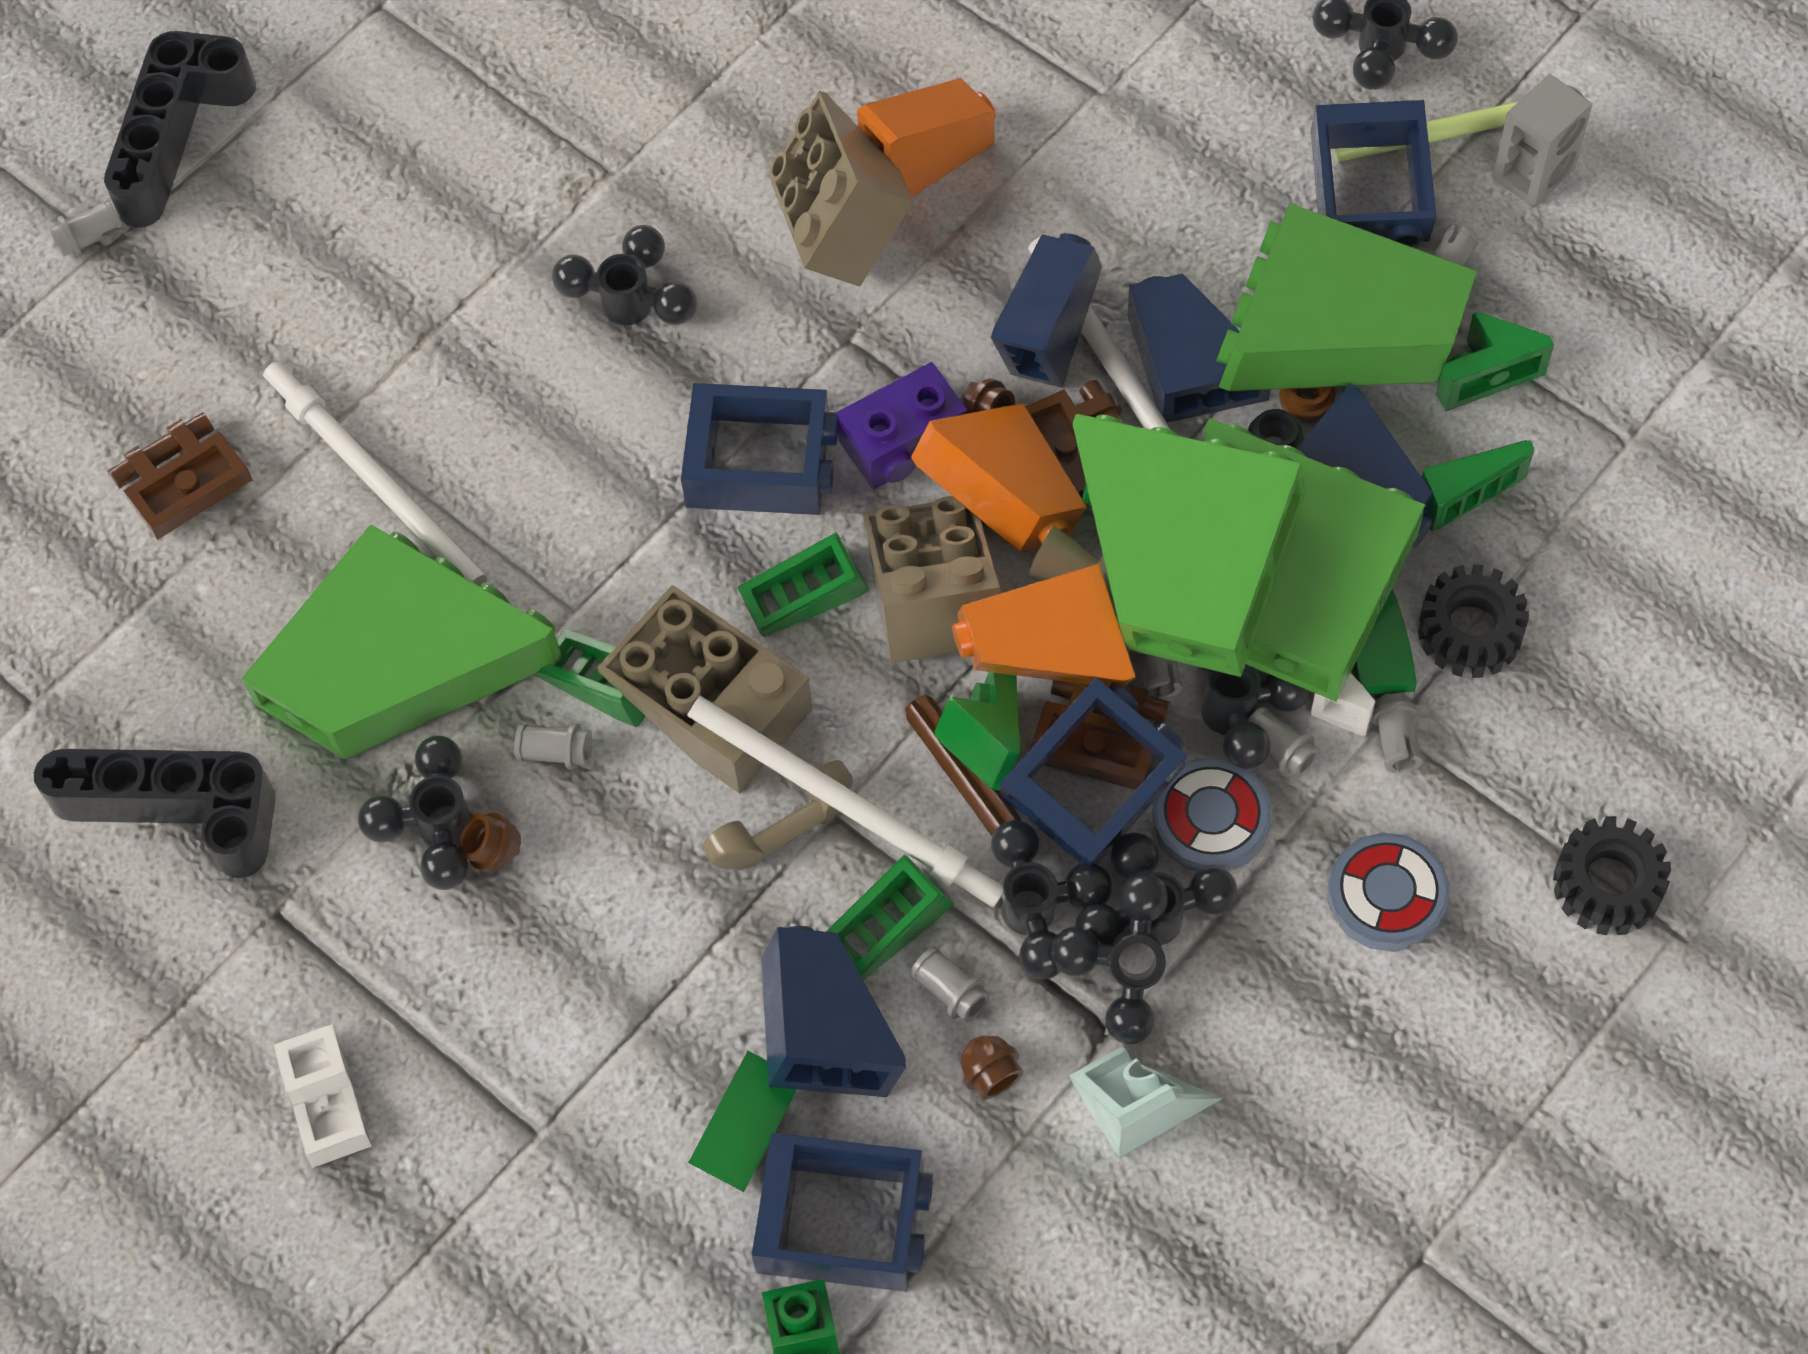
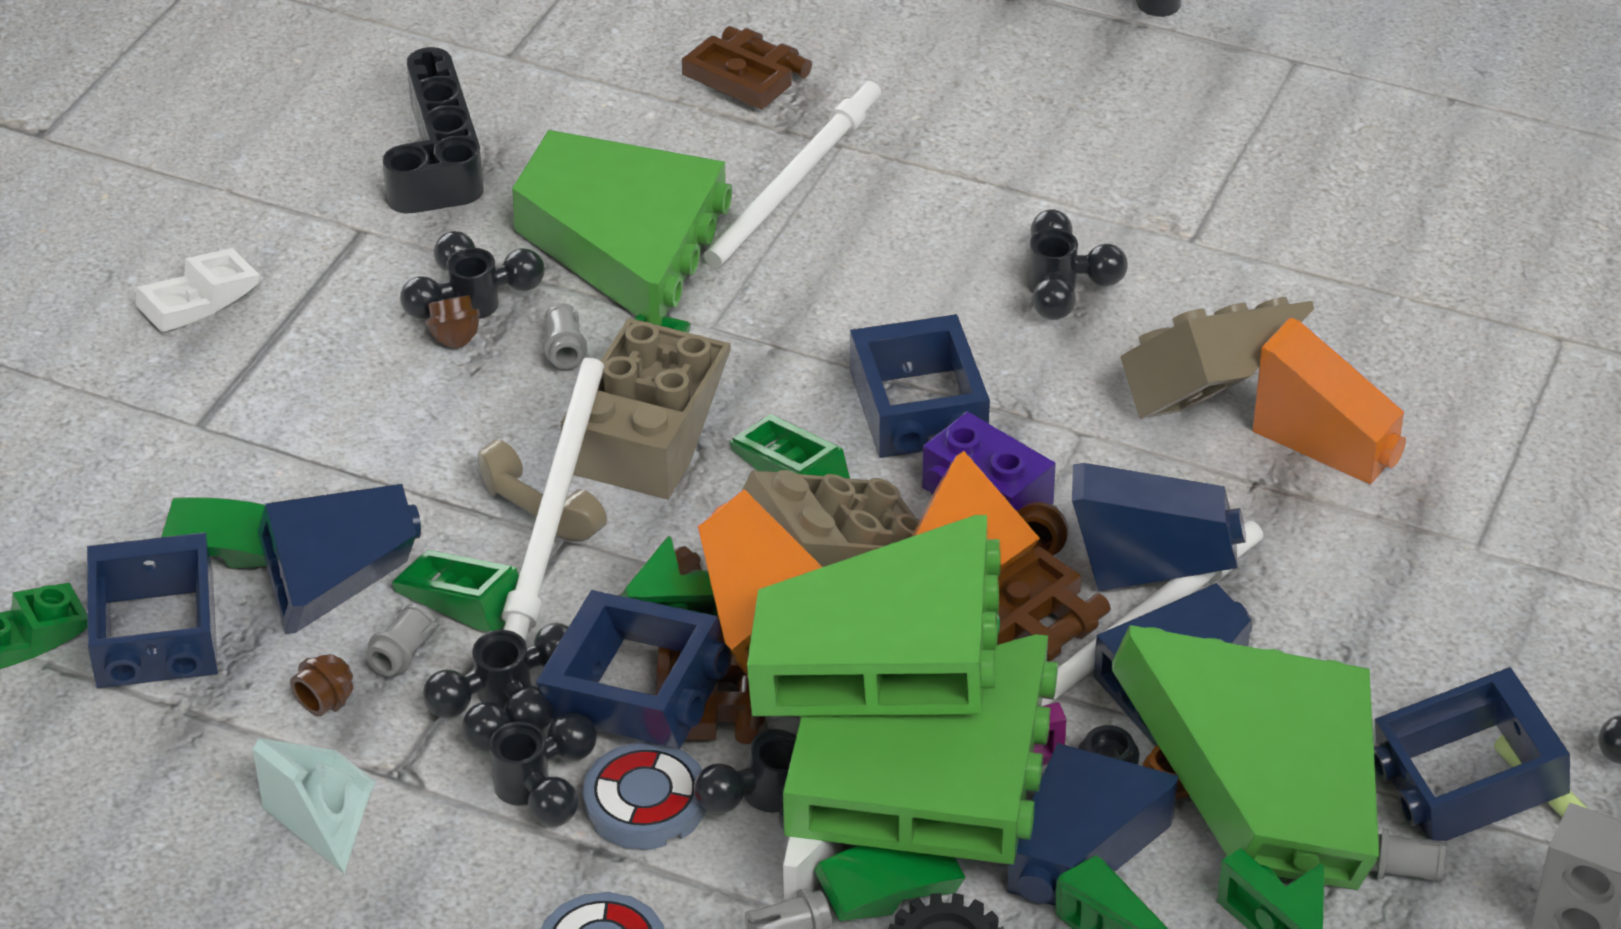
camera: 70 degrees right, 20 degrees down
(1078, 952) = (446, 740): black piece -> none
(1291, 749) = (734, 838): light grey pin -> none

